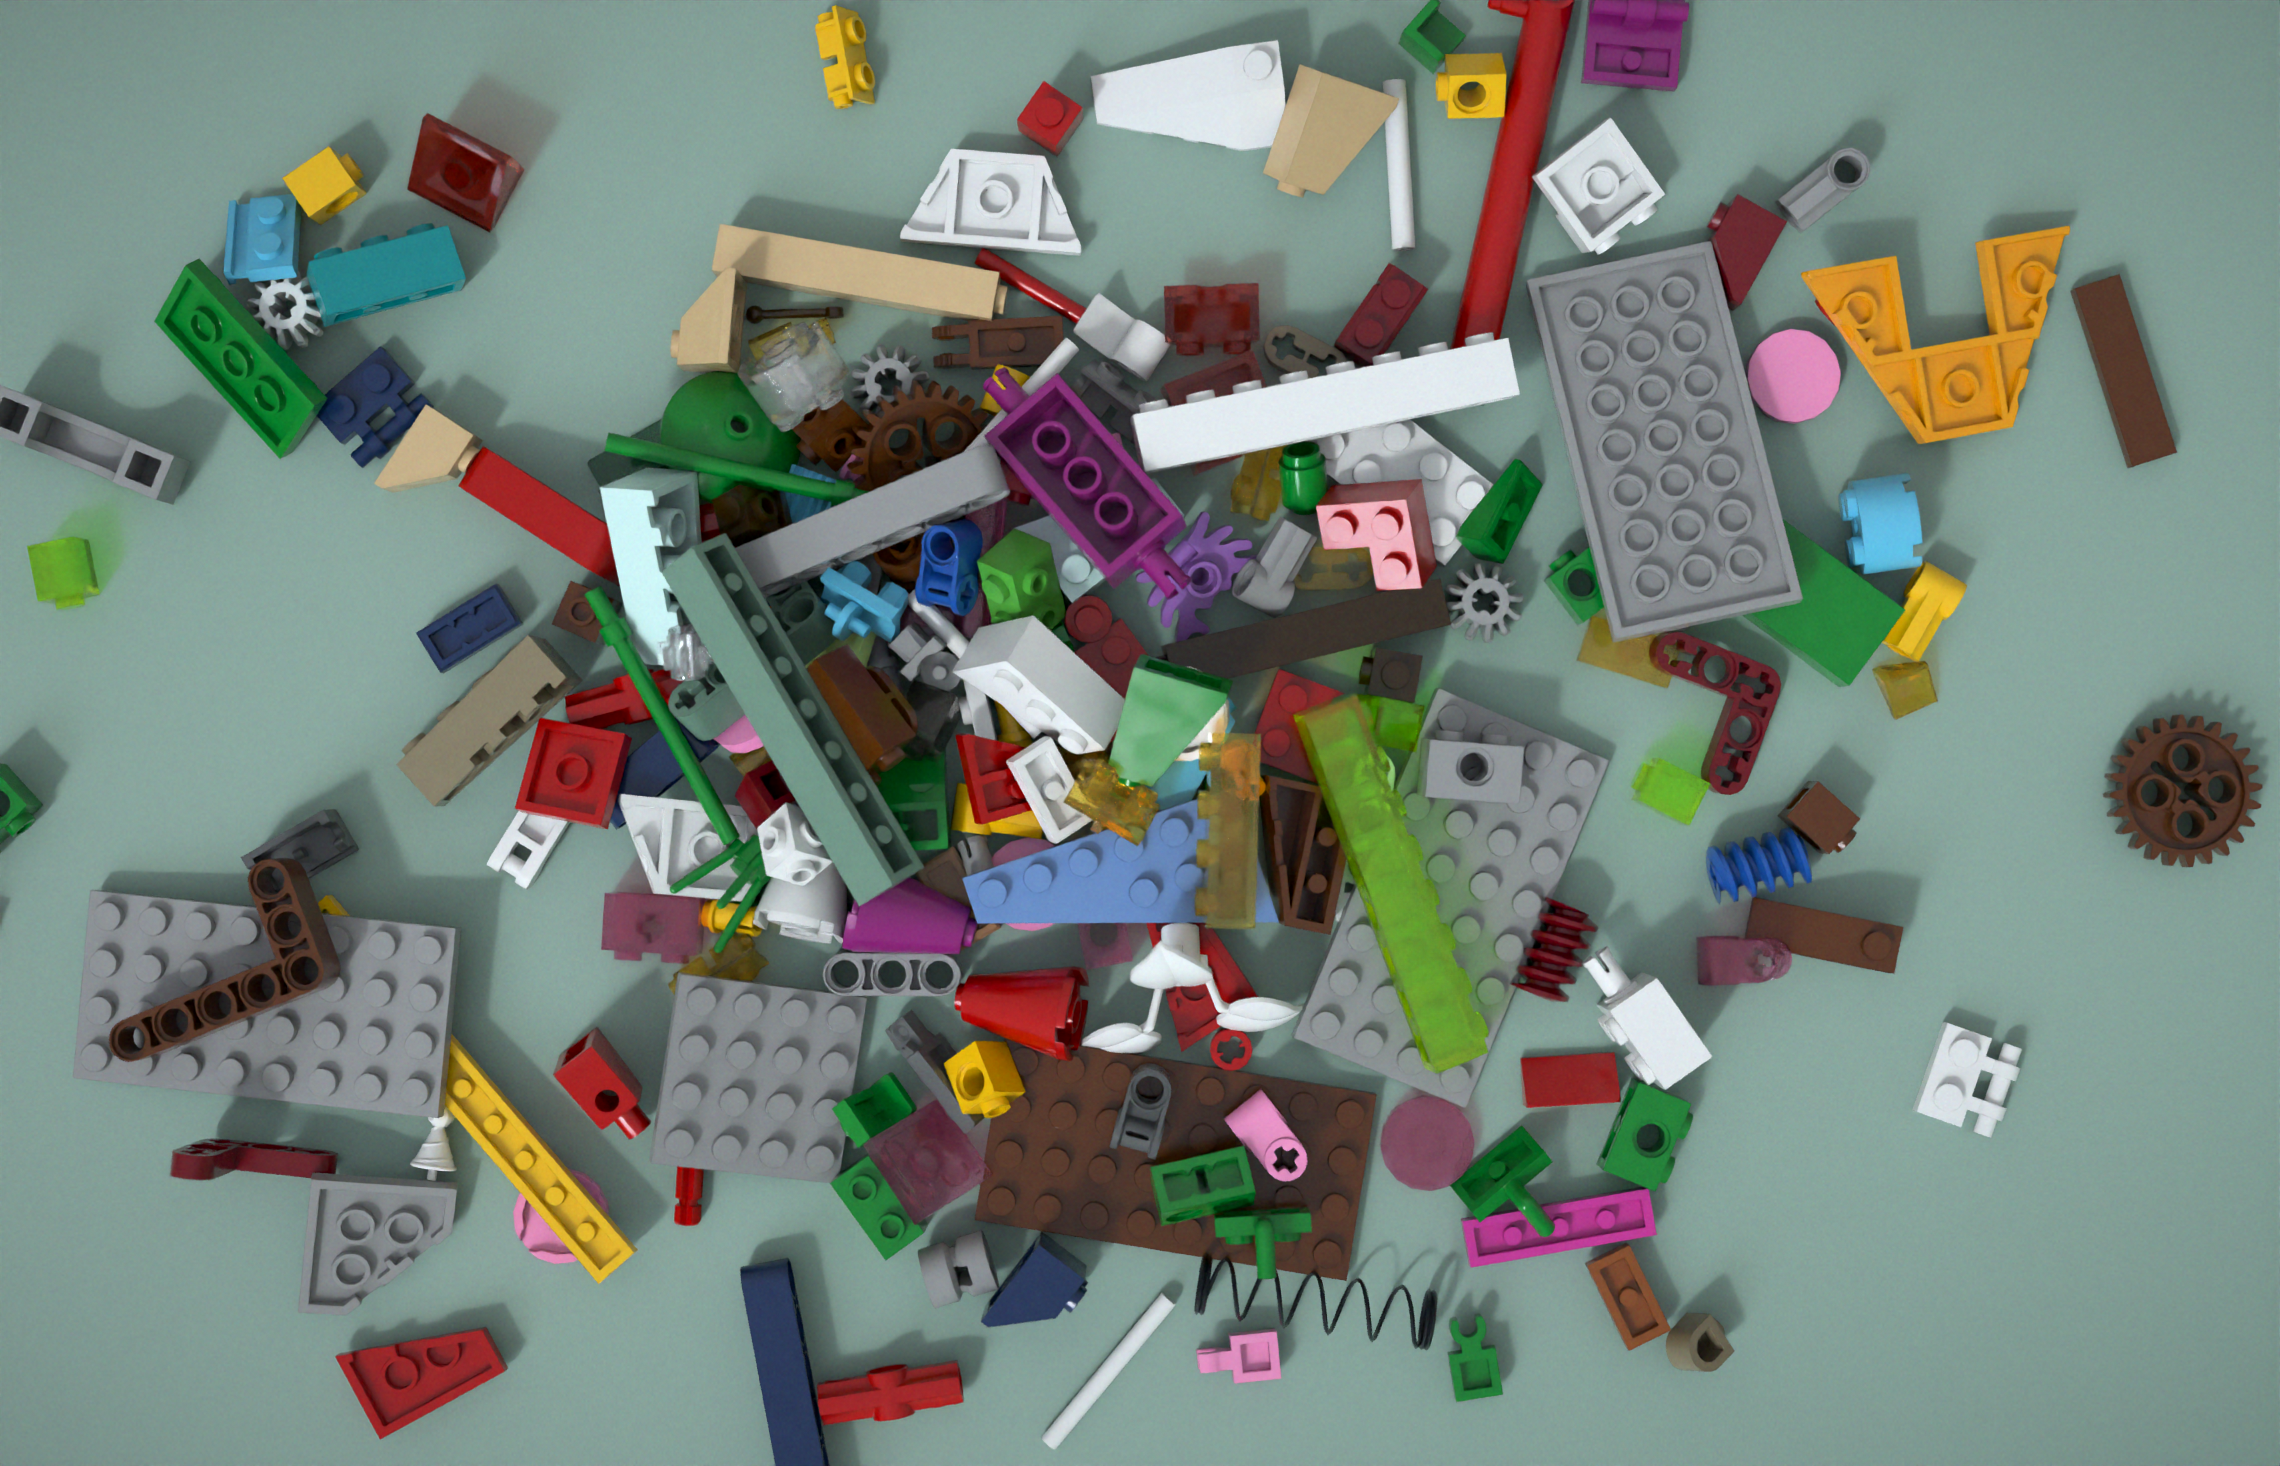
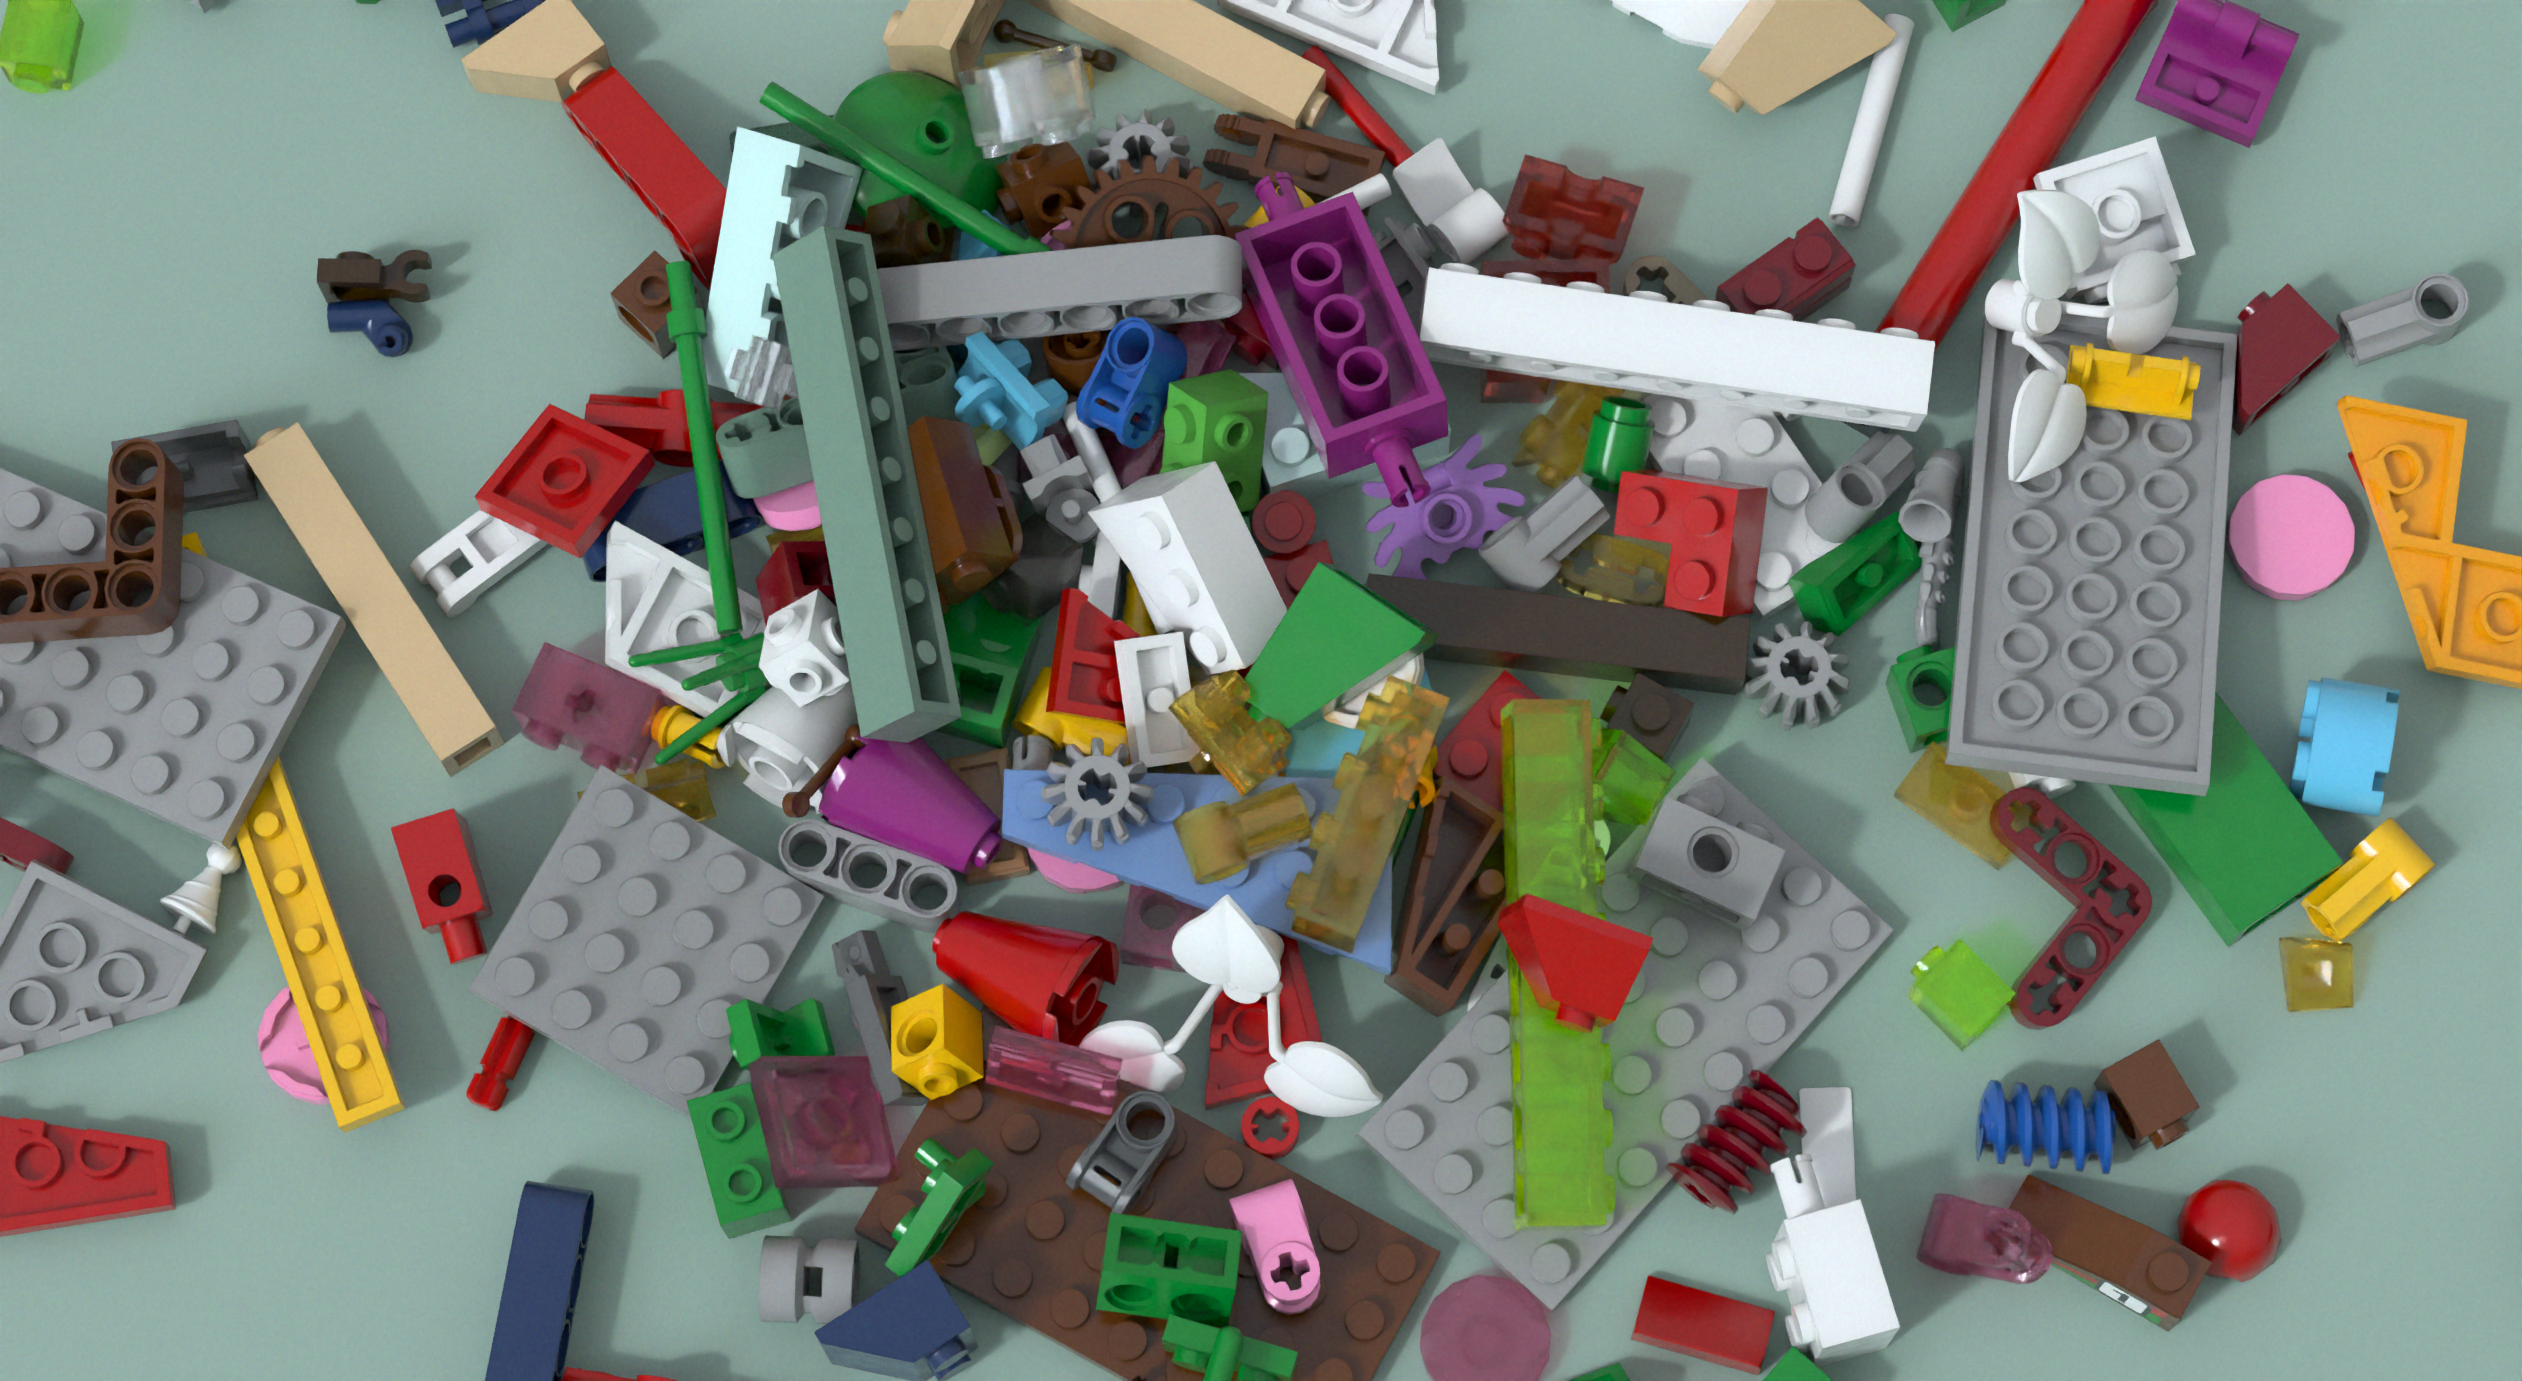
camera: 25 degrees right, 15 degrees down
(365, 667) = (363, 278): none -> dark brown plate
(390, 691) = (377, 321): none -> dark blue arm
(469, 628) = (505, 277): dark blue plate -> none
(469, 897) = (373, 598): none -> tan brick
(487, 719) = (485, 387): dark tan wedge -> none
(829, 957) = (797, 803): none -> reddish brown hinge
(1033, 1190) = (950, 1190): none -> green plate
(1037, 897) = (1104, 773): none -> light grey gear
(1072, 1073) = (1053, 1070): none -> clear pink tile
(1137, 877) = (1225, 838): none -> clear yellow piece
(1413, 893) = (1573, 960): none -> red slope
(1481, 102) = (2006, 76): yellow brick -> none
(1484, 451) = (1860, 487): none -> light grey piece
(1541, 461) = (1931, 519): none -> light grey piece
(1577, 247) = (2054, 245): none -> white plant
(1615, 929) = (1830, 1141): none -> white sticker
(1650, 308) = (2134, 381): none -> yellow hinge
(1902, 889) = (2231, 1228): none -> red hair

